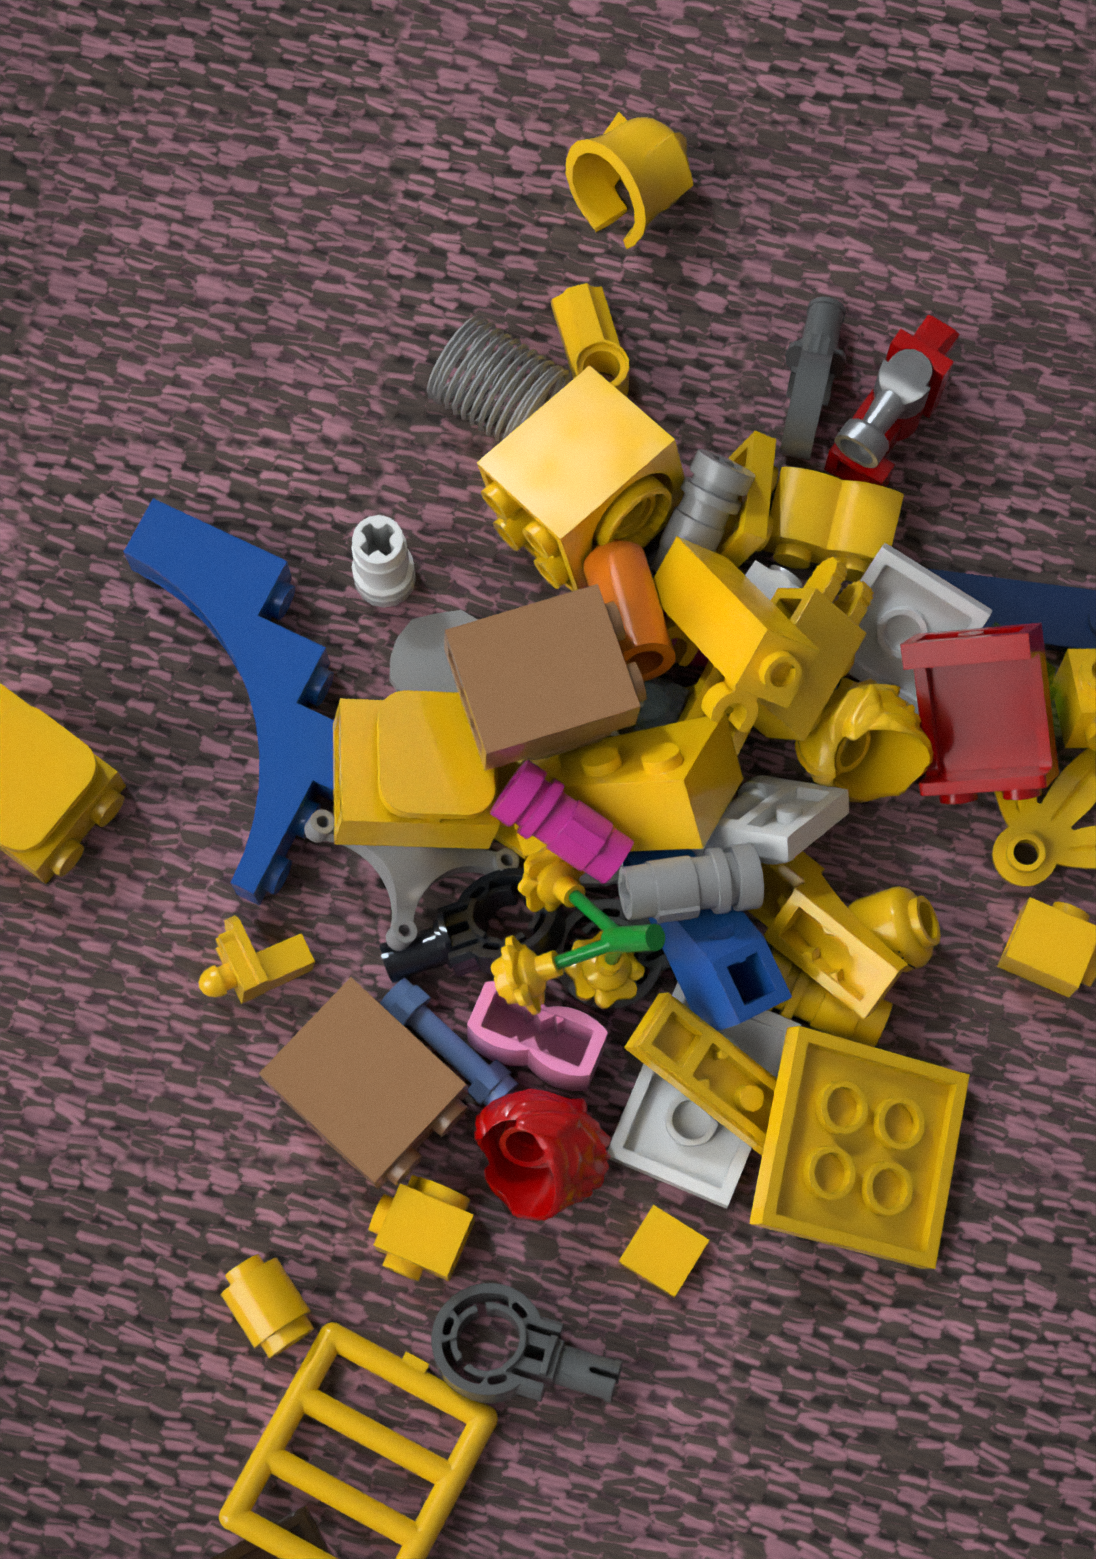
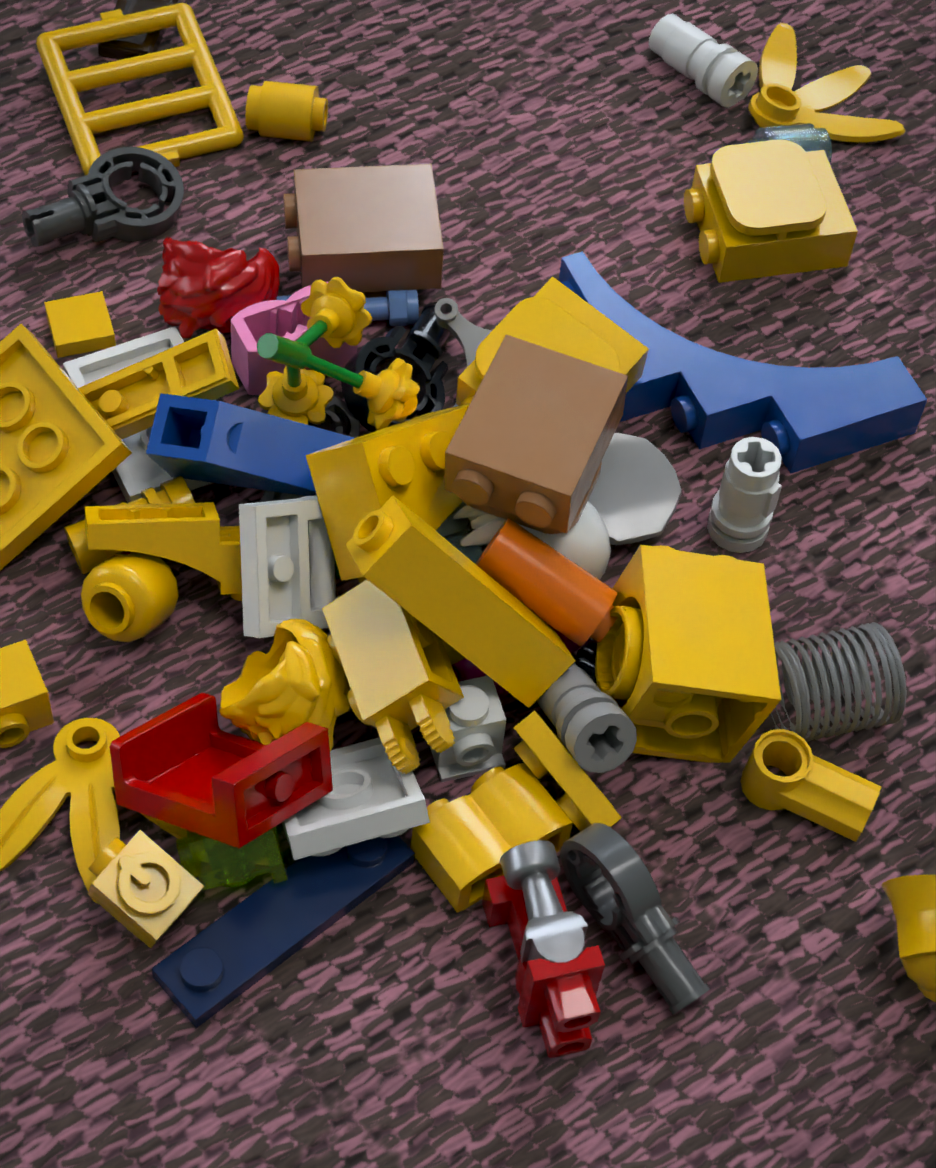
camera: 125 degrees right, 20 degrees down
(253, 972) = (518, 240): yellow piece -> none
(422, 1228) = (240, 207): yellow brick -> none
(561, 823) = (415, 388): dark pink axle -> none
(685, 884) = (290, 427): light grey axle -> none

